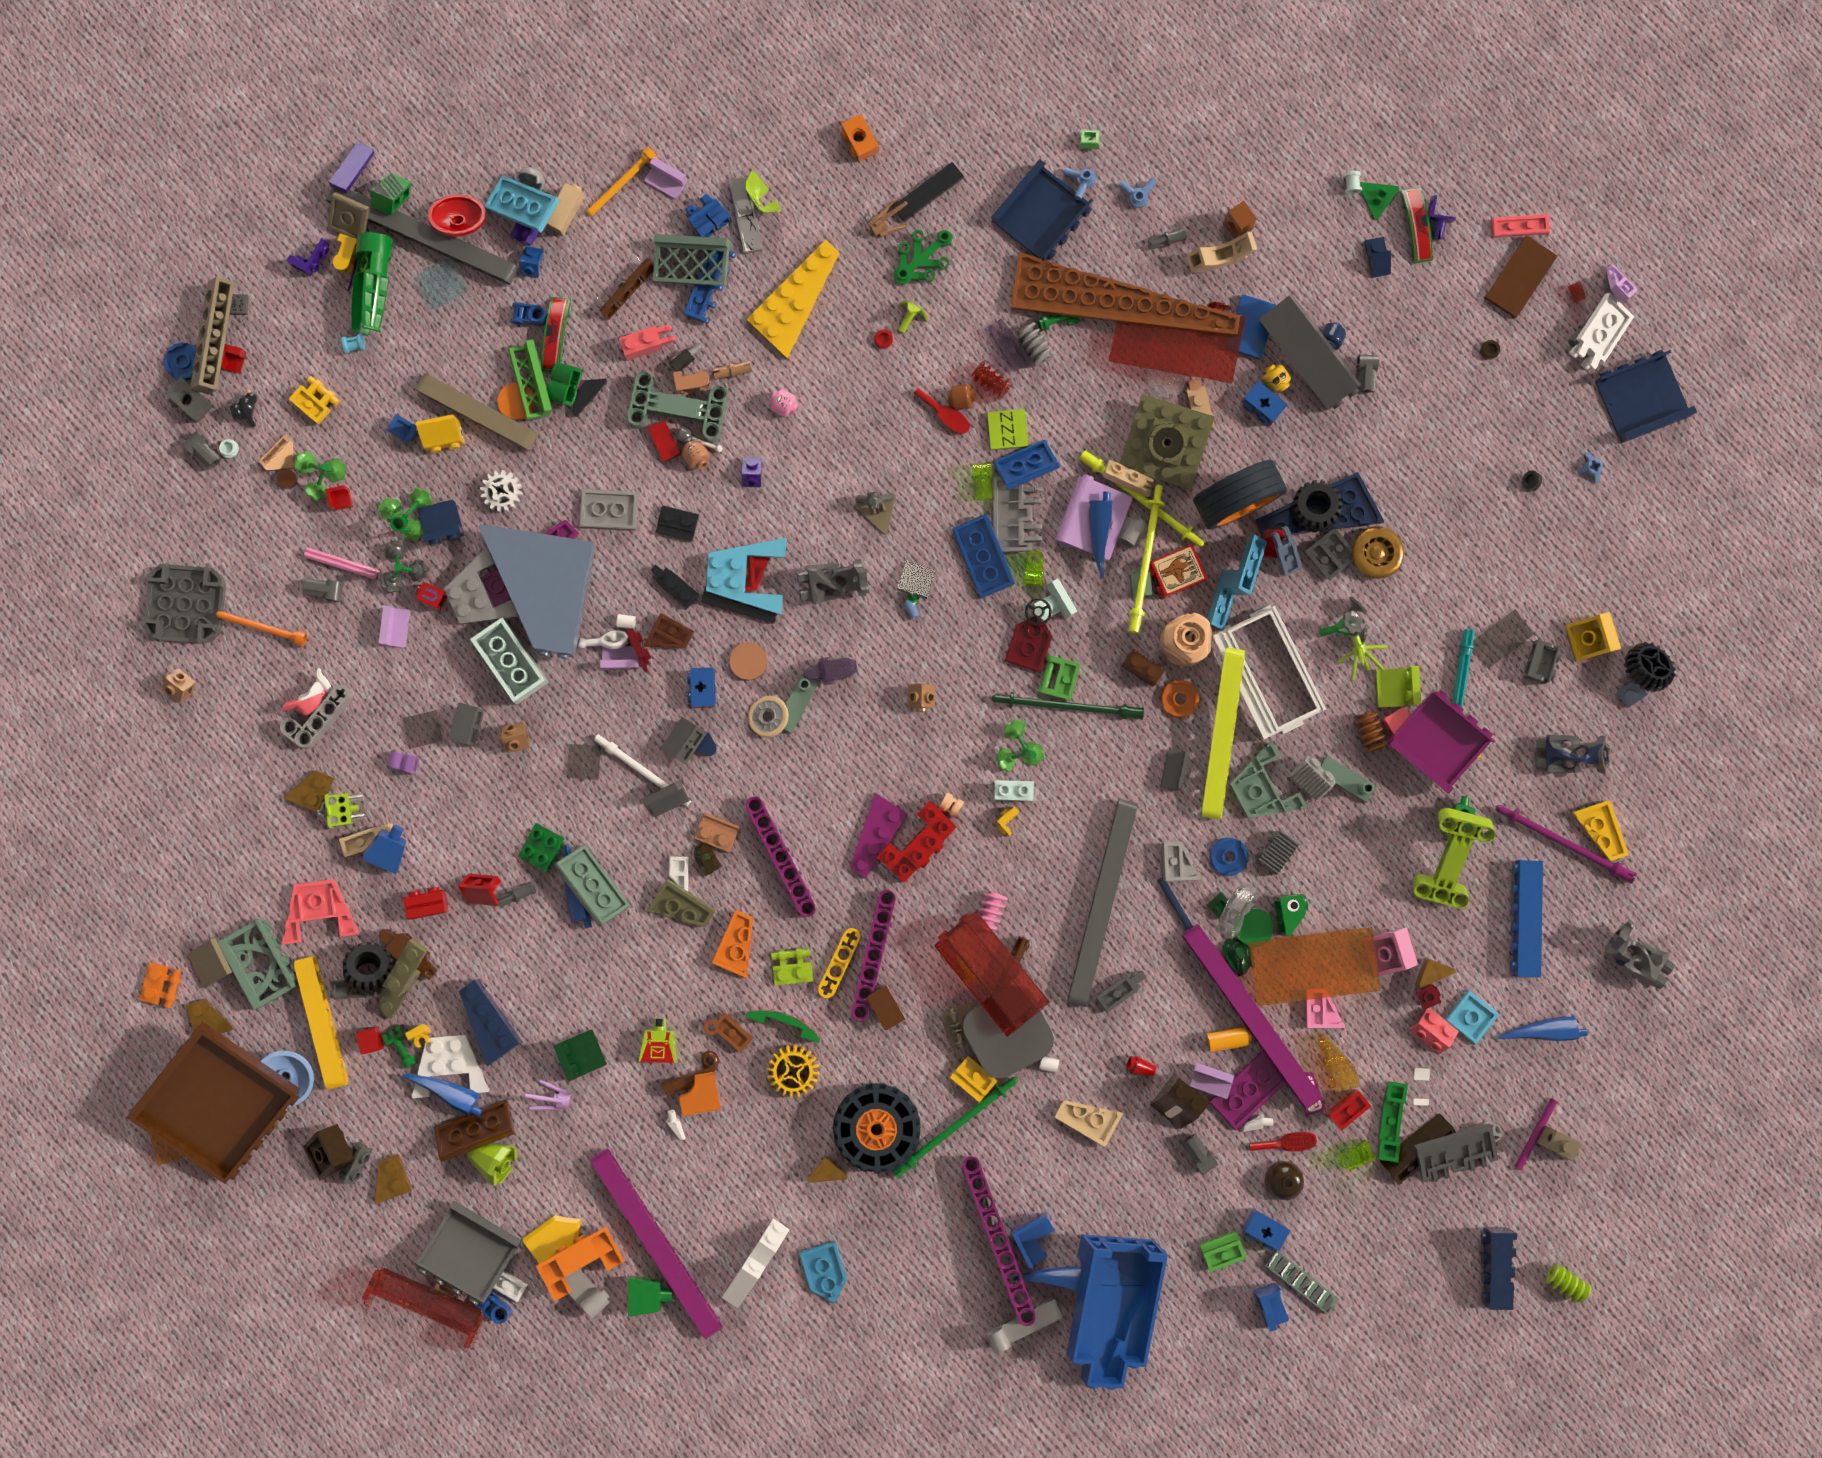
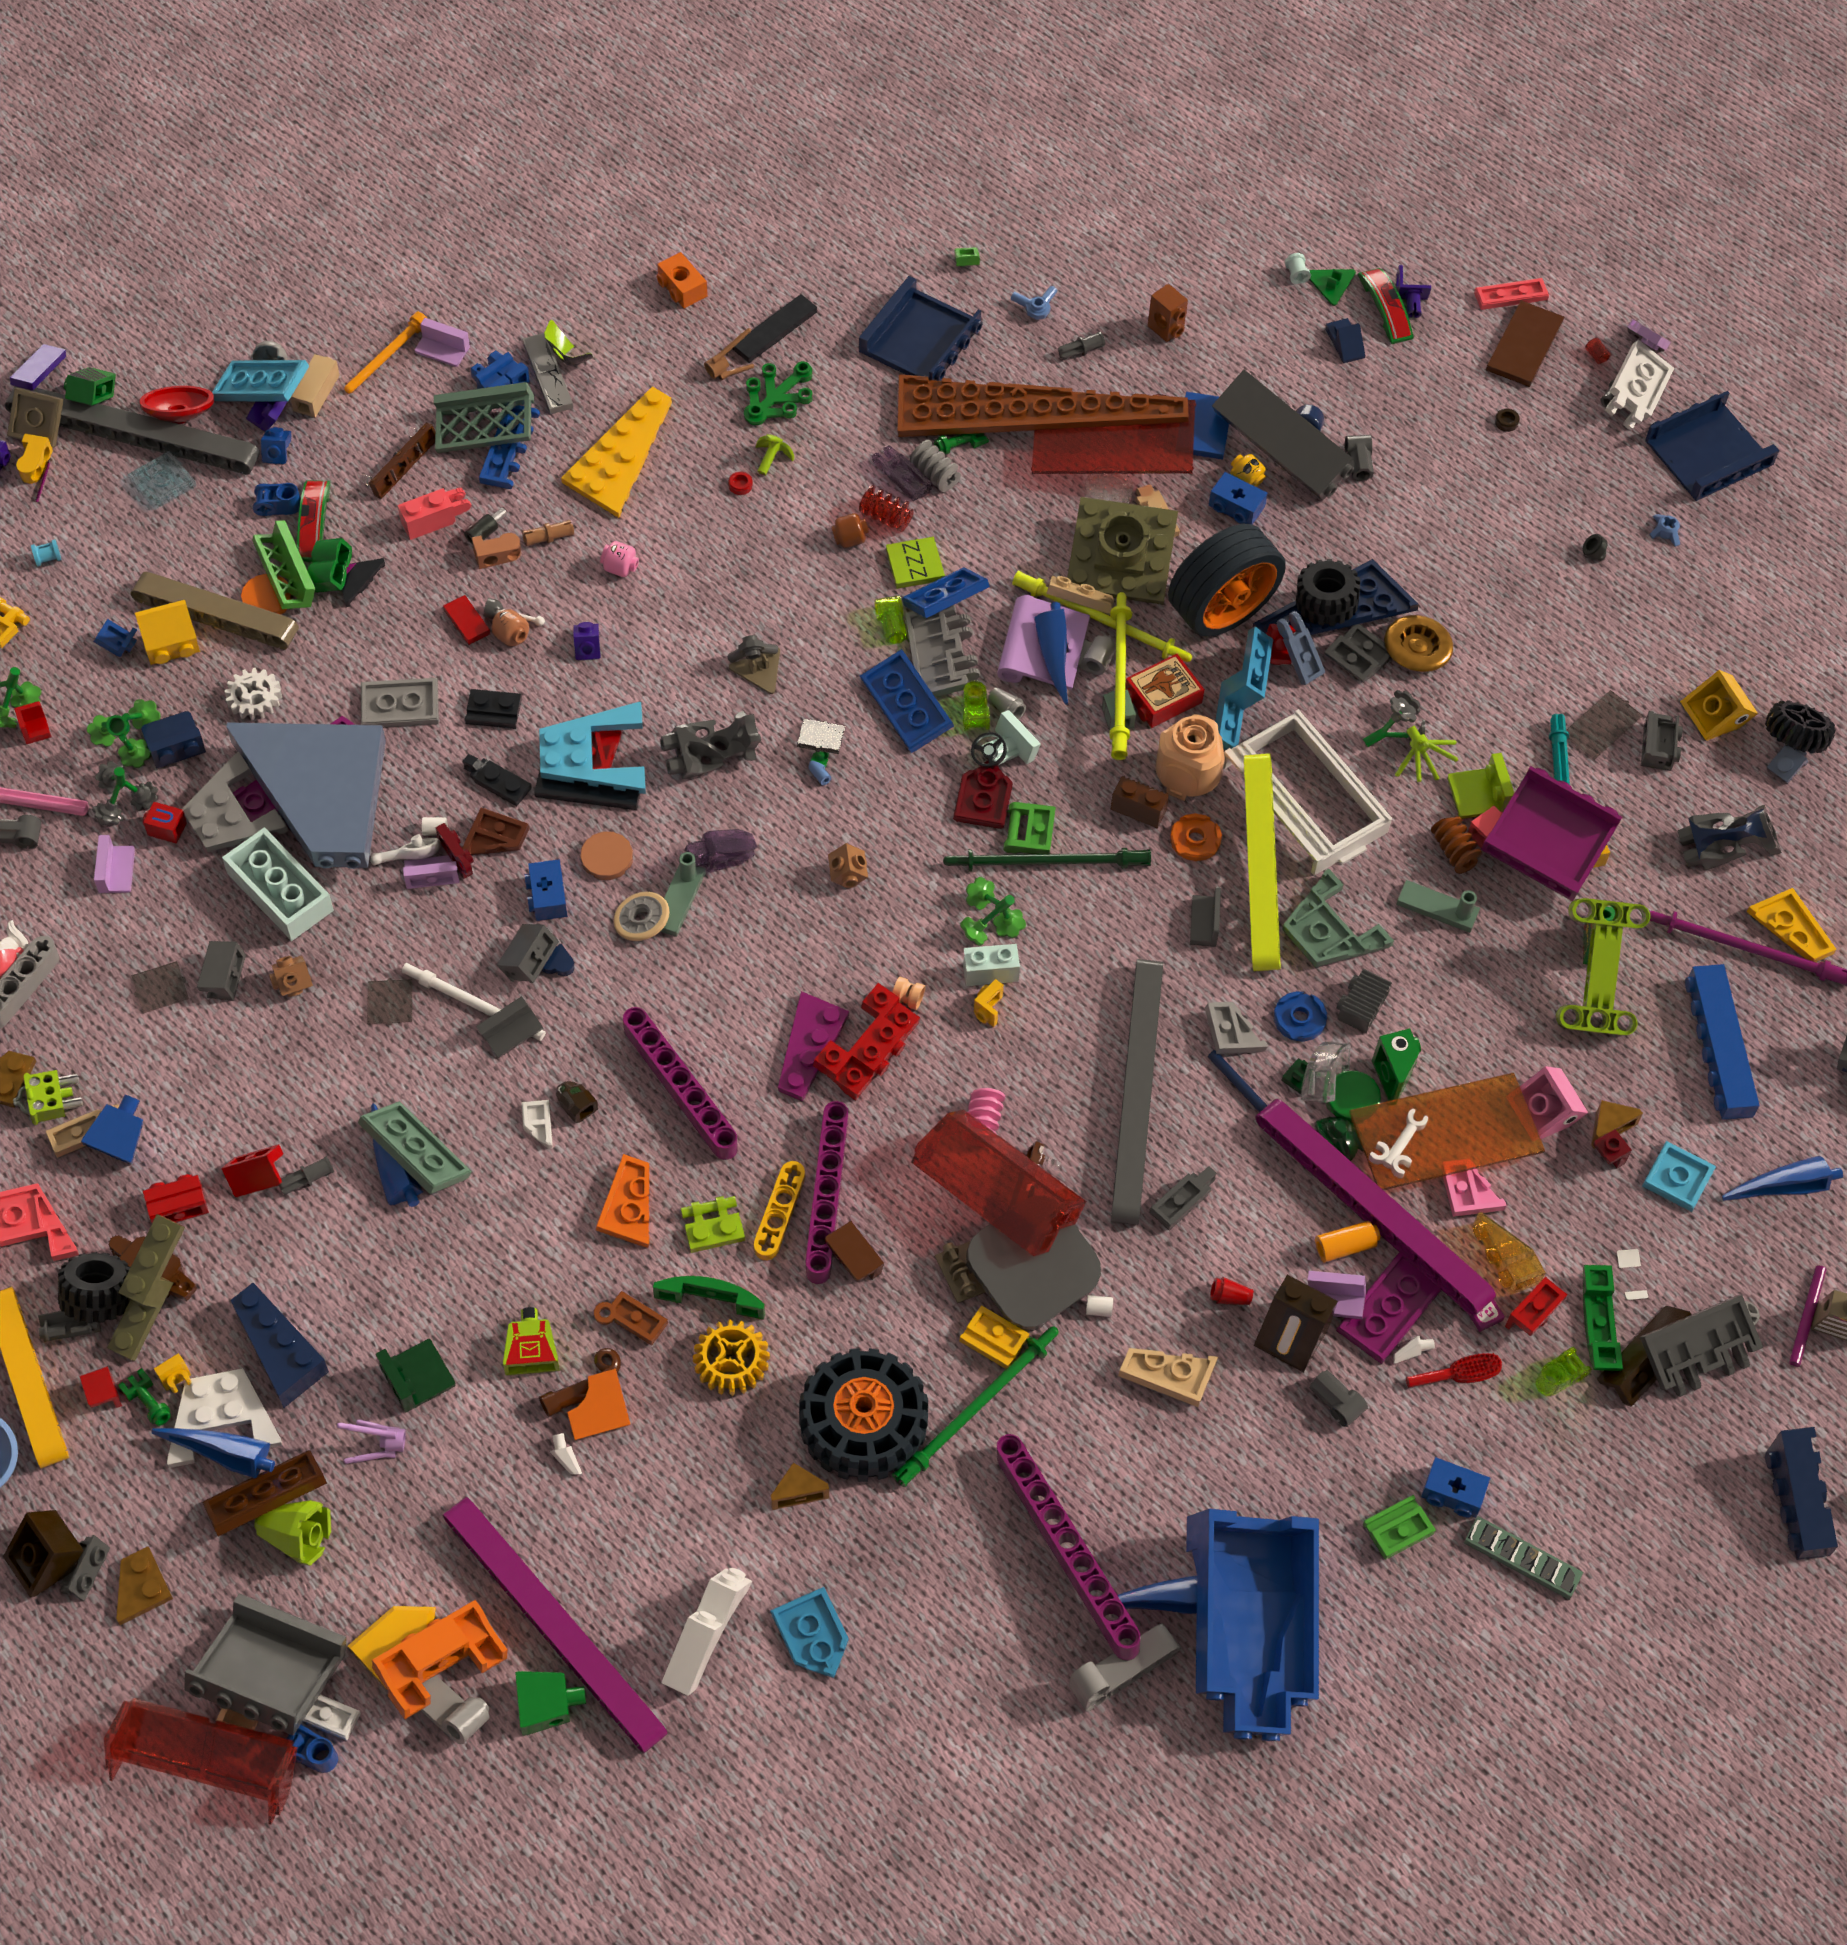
camera: 10 degrees left, 25 degrees down
(370, 281) = (68, 478): green piece -> none
(403, 762) = (135, 1026): medium lavender leg -> none
(541, 847) = (339, 1111): green hinge -> none
(677, 406) = (481, 578): sand green beam -> none
(680, 904) = (543, 1160): olive wing -> none
(717, 832) = (586, 1066): nougat plate -> none
(947, 414) = (836, 554): red piece -> none
(1028, 1236) = (1109, 1541): blue panel -> none
(1059, 568) = (1005, 701): none -> light grey cone
(1085, 179) = (968, 294): medium blue piece -> none
(1223, 255) = (1155, 354): tan arch -> none
(1270, 985) = (1392, 1158): none -> white bar
(1271, 1306) = (1484, 1592): blue panel -> none
(1284, 1180) = (1467, 1420): dark brown cylinder -> none
(1313, 778) = (1393, 904): light grey brick -> none
(1434, 1031) = (1631, 1198): coral bracket -> none

